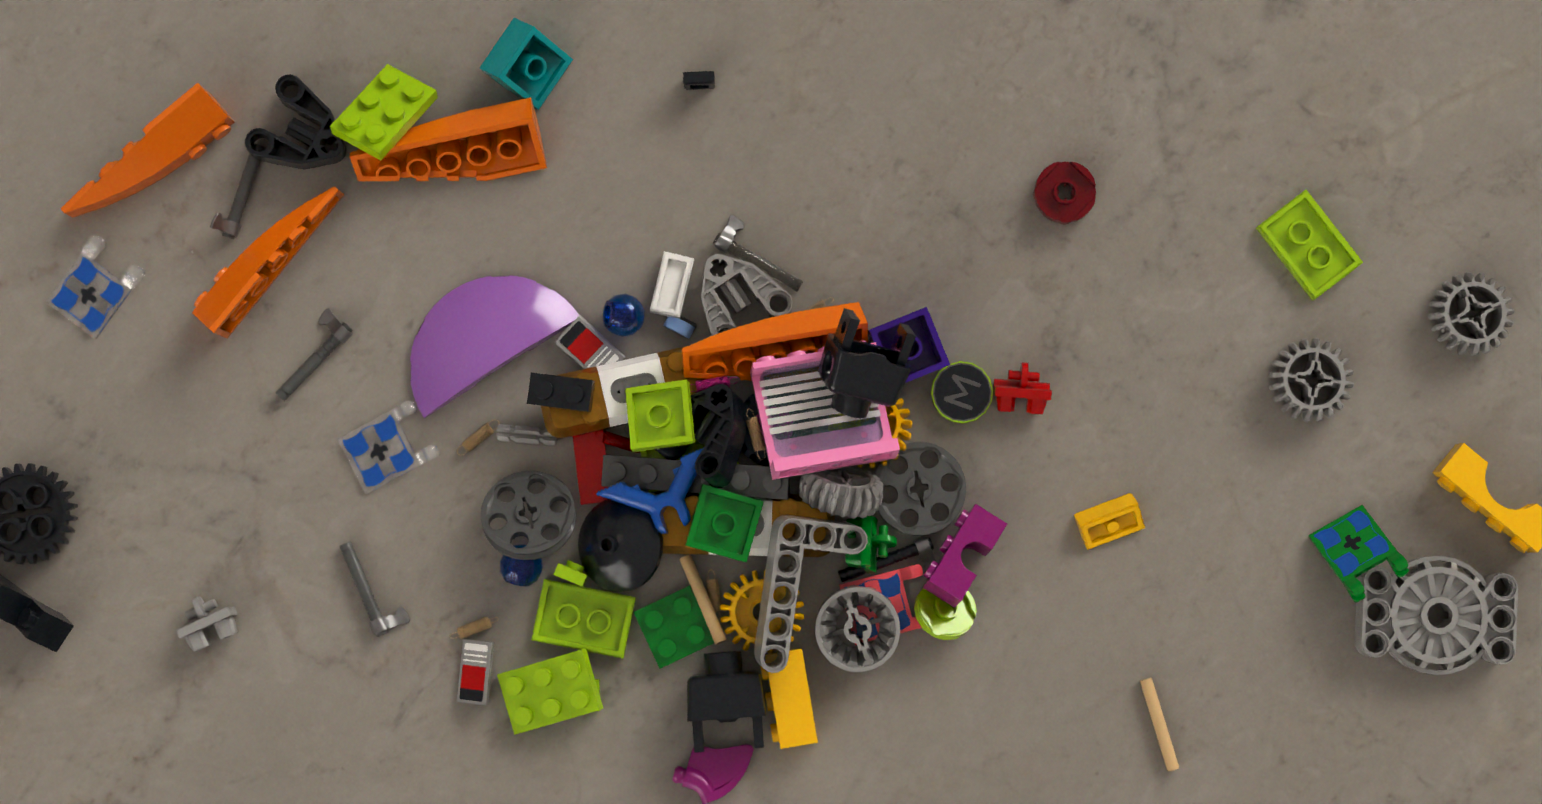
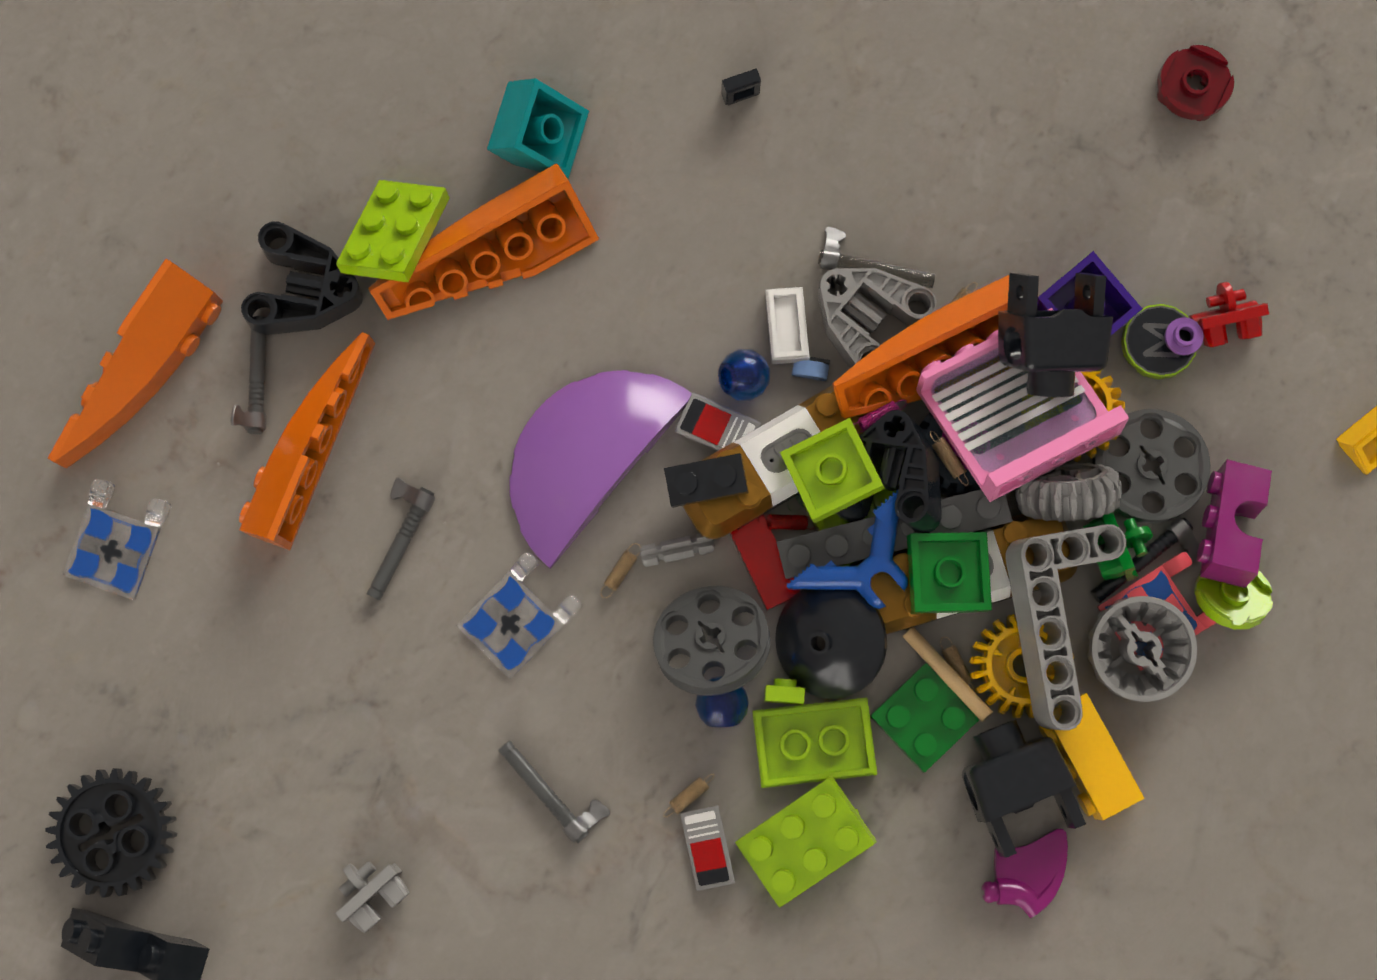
camera: 15 degrees left, 5 degrees down
(978, 405) = (1174, 341): none -> medium lavender plate

